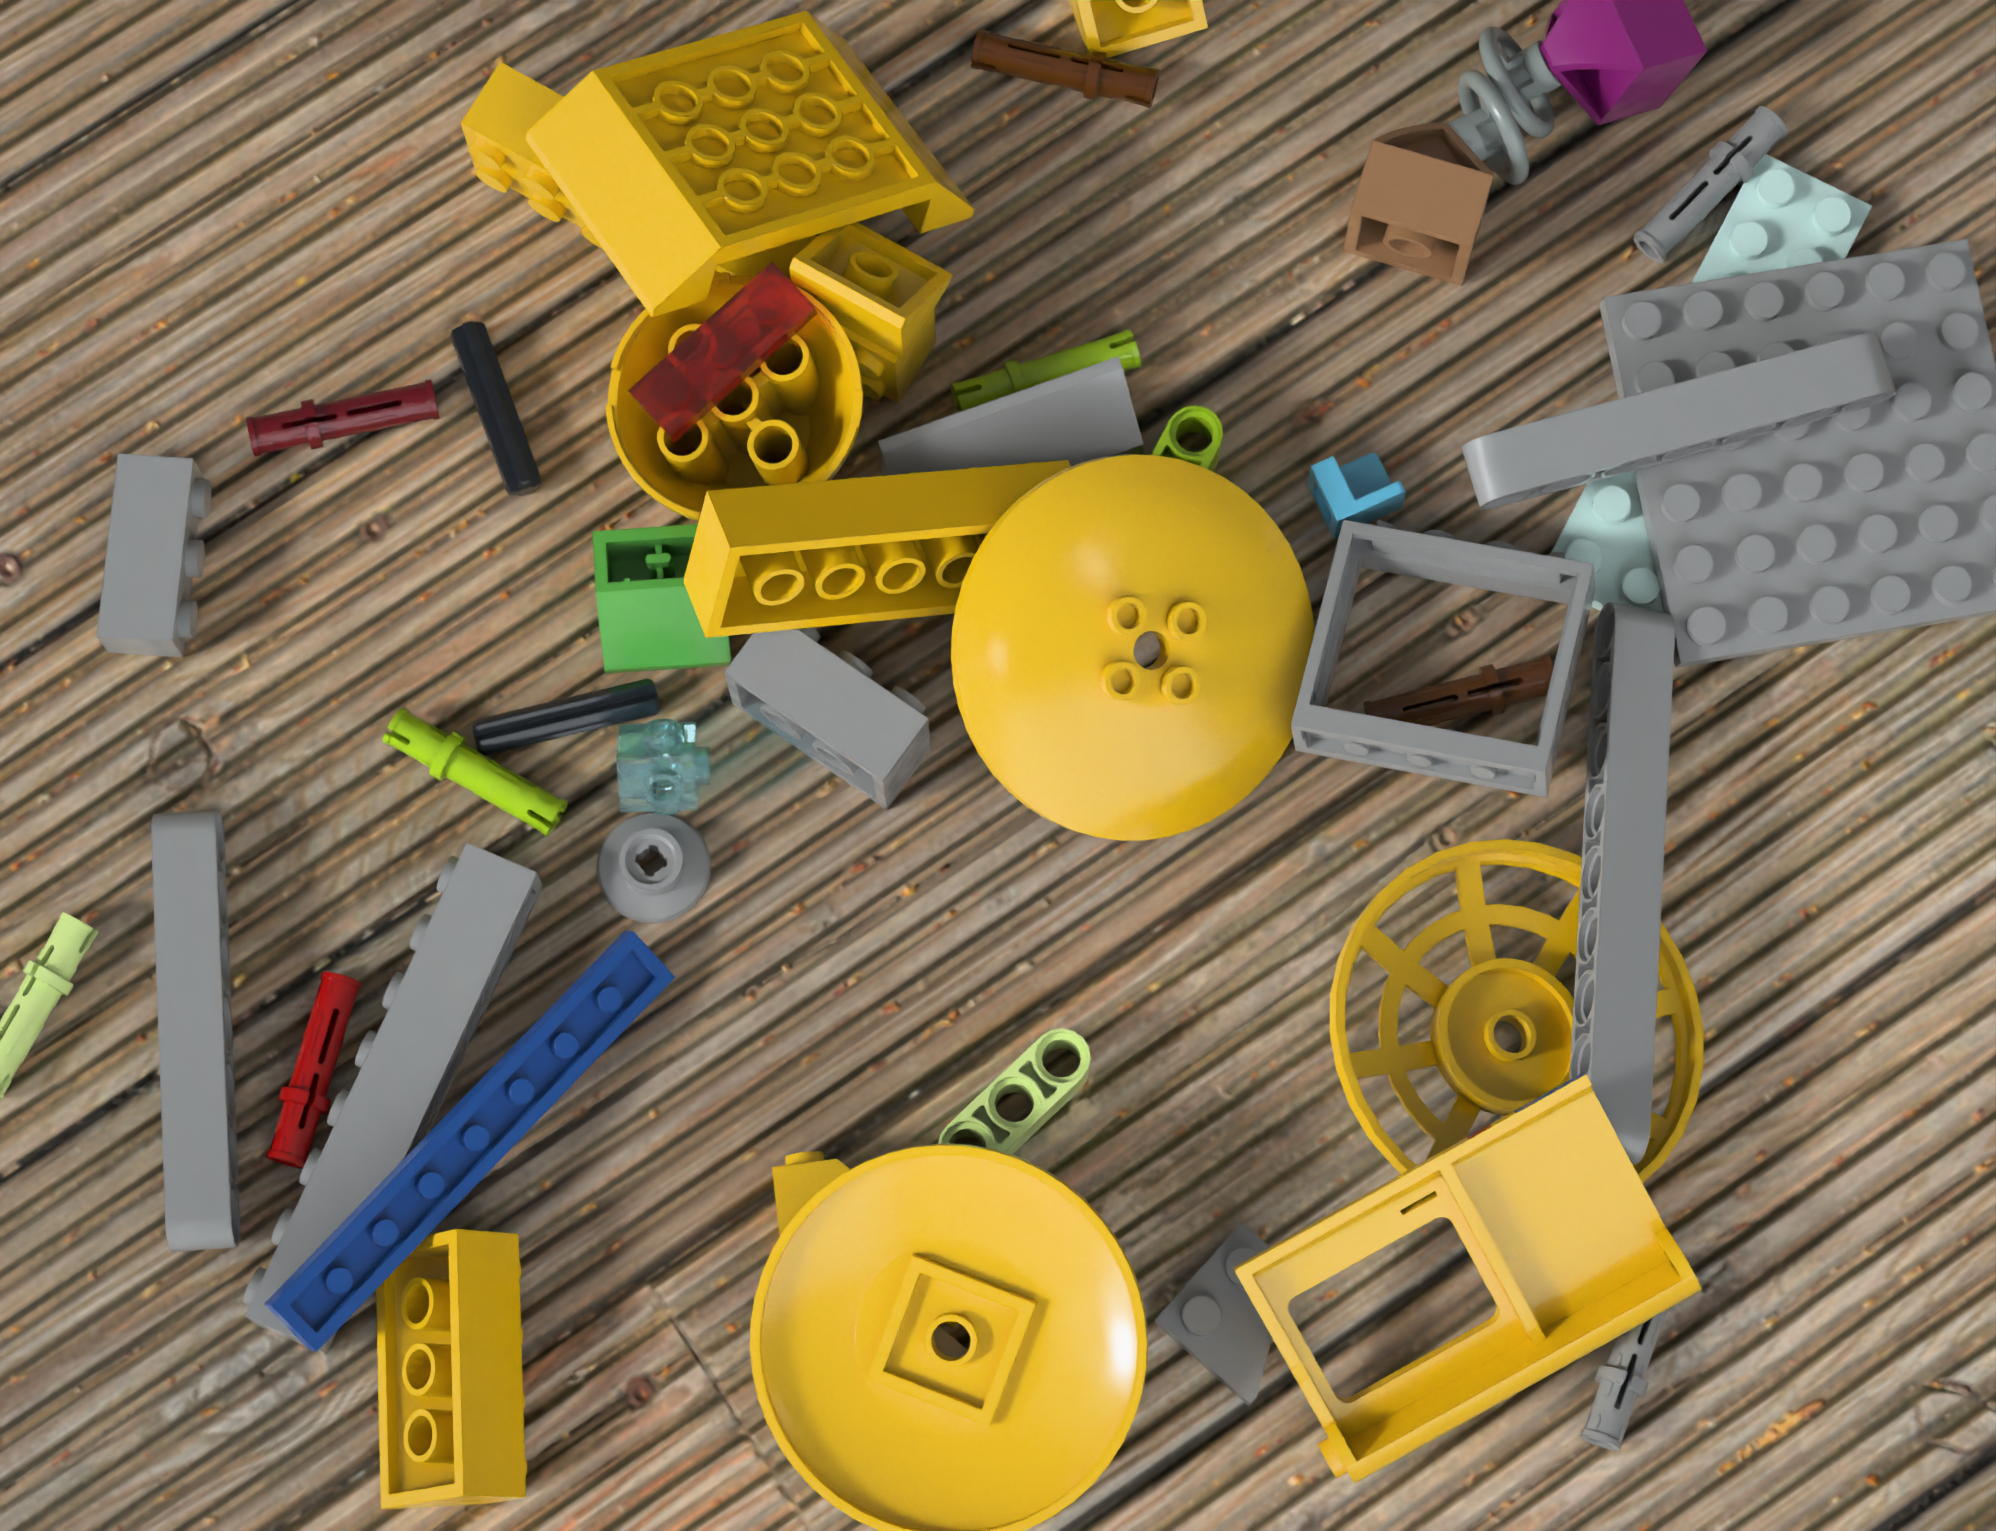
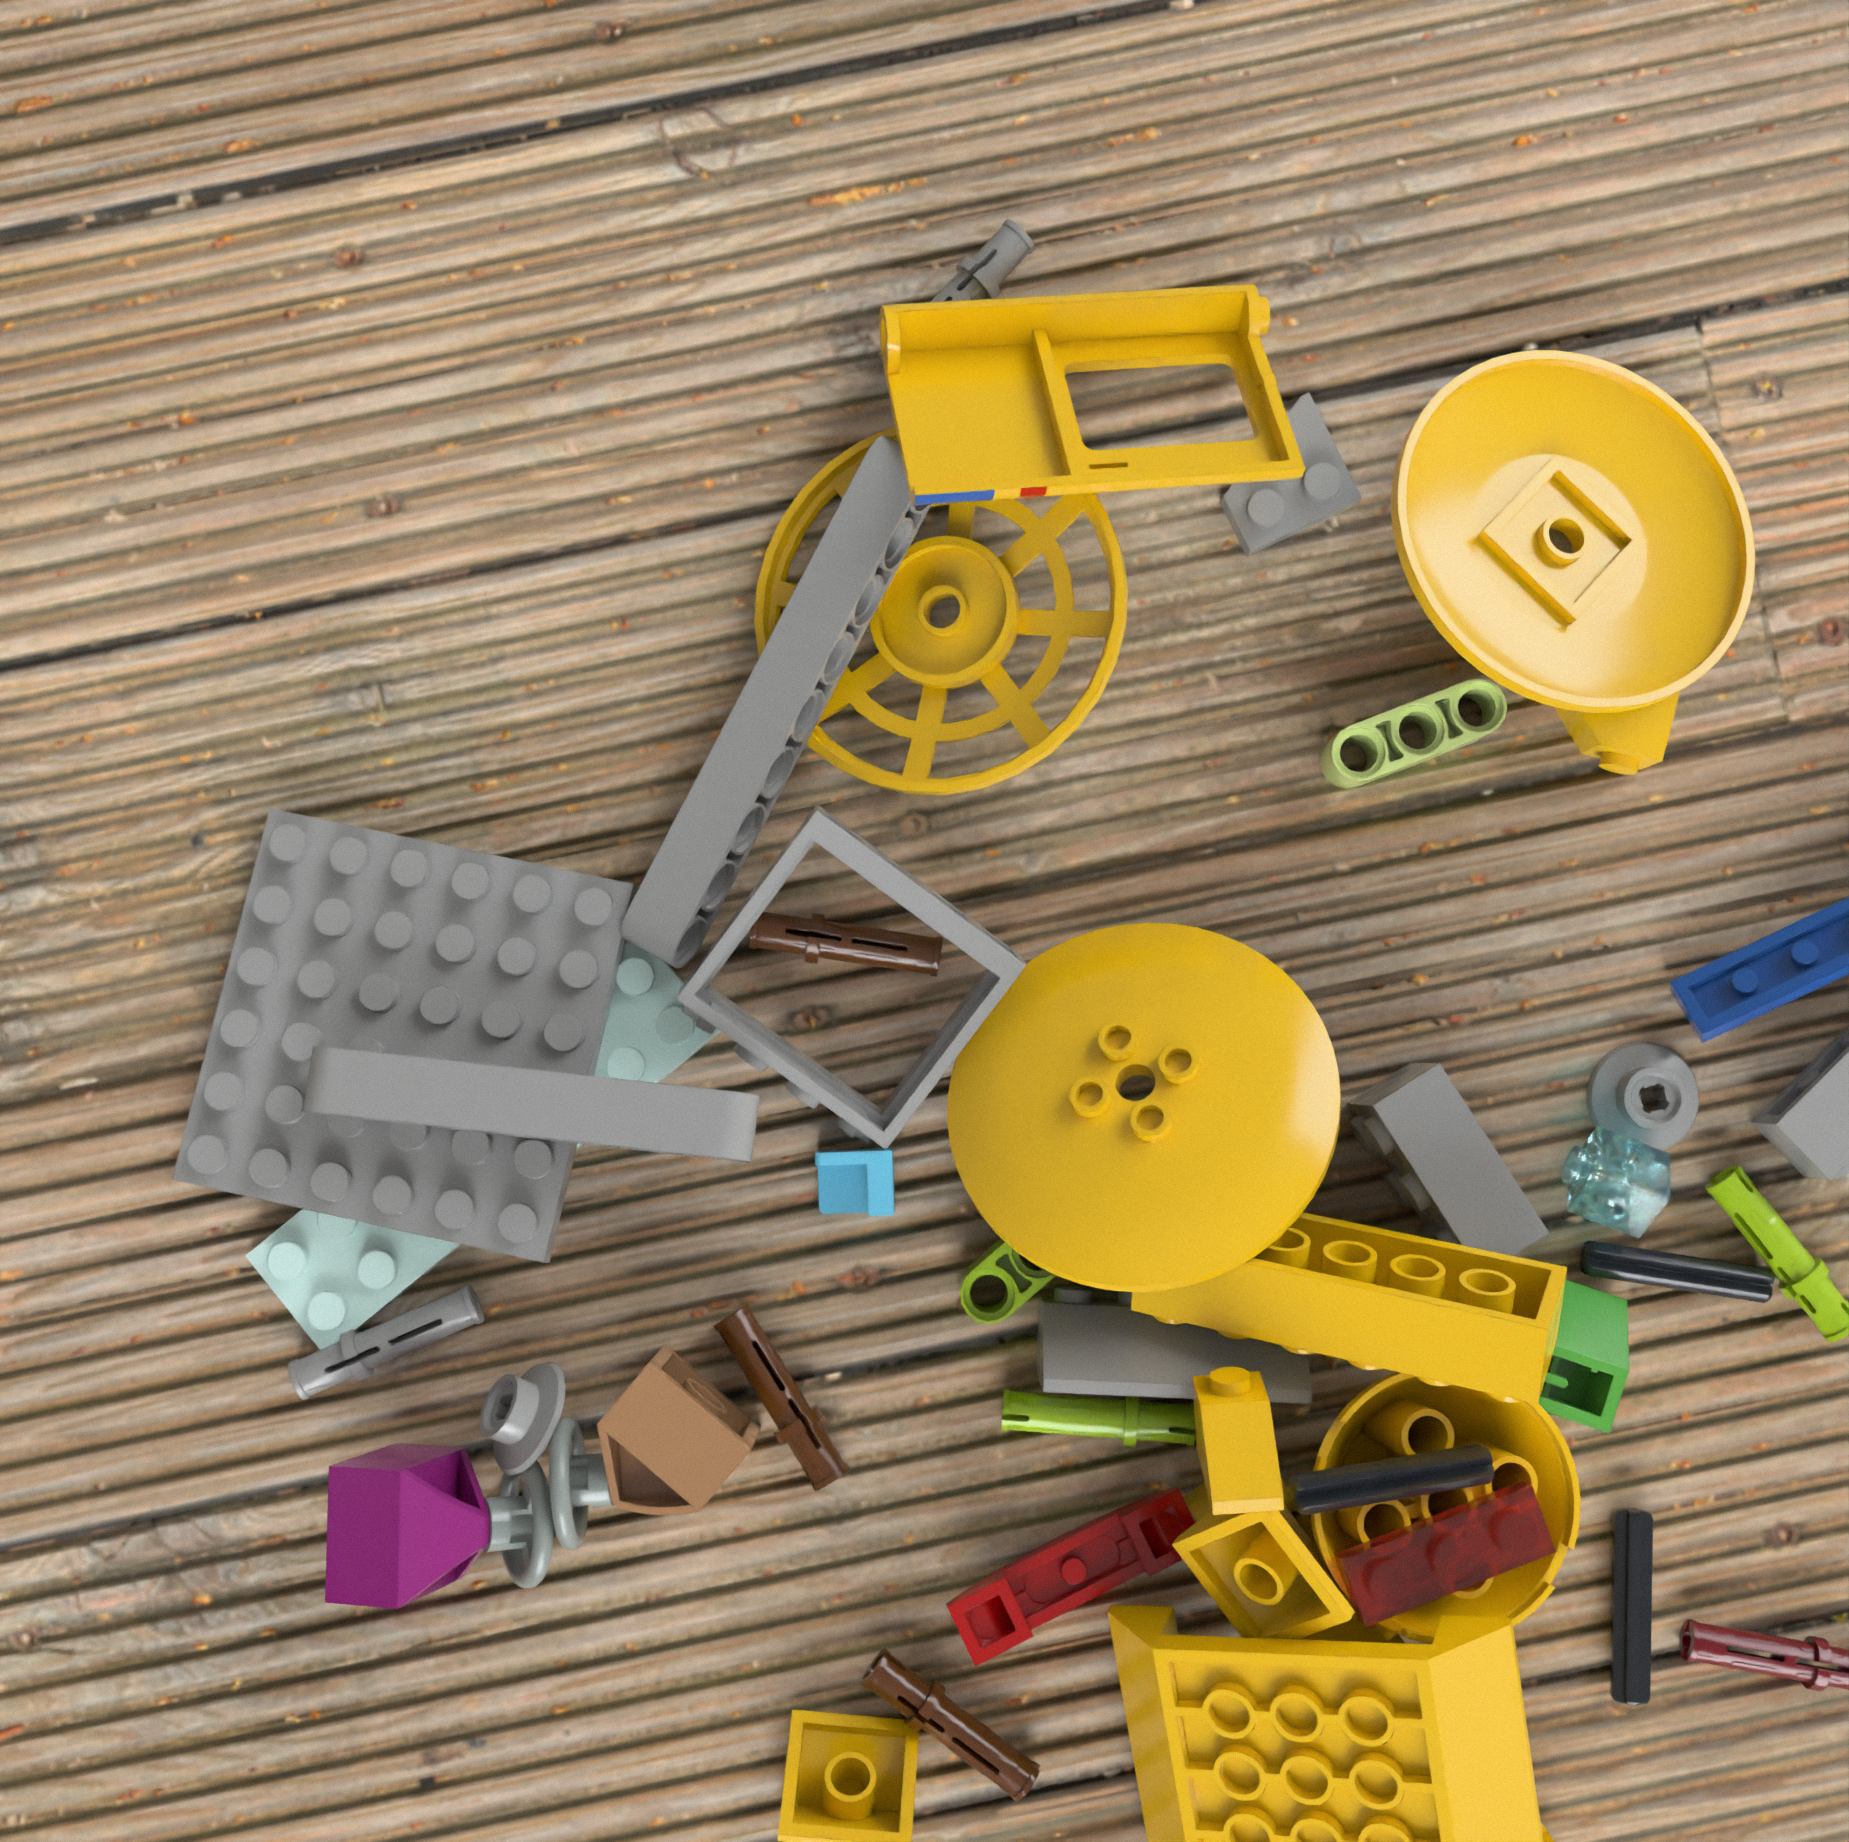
camera: 160 degrees left, 10 degrees up
(795, 392) = (1391, 1479): none -> black axle
(940, 371) = (1236, 1442): none -> yellow slope
(1021, 229) = (1069, 1572): none -> red slope
(1275, 239) = (794, 1418): none -> reddish brown pin
(1560, 168) = (523, 1415): none -> light grey piece

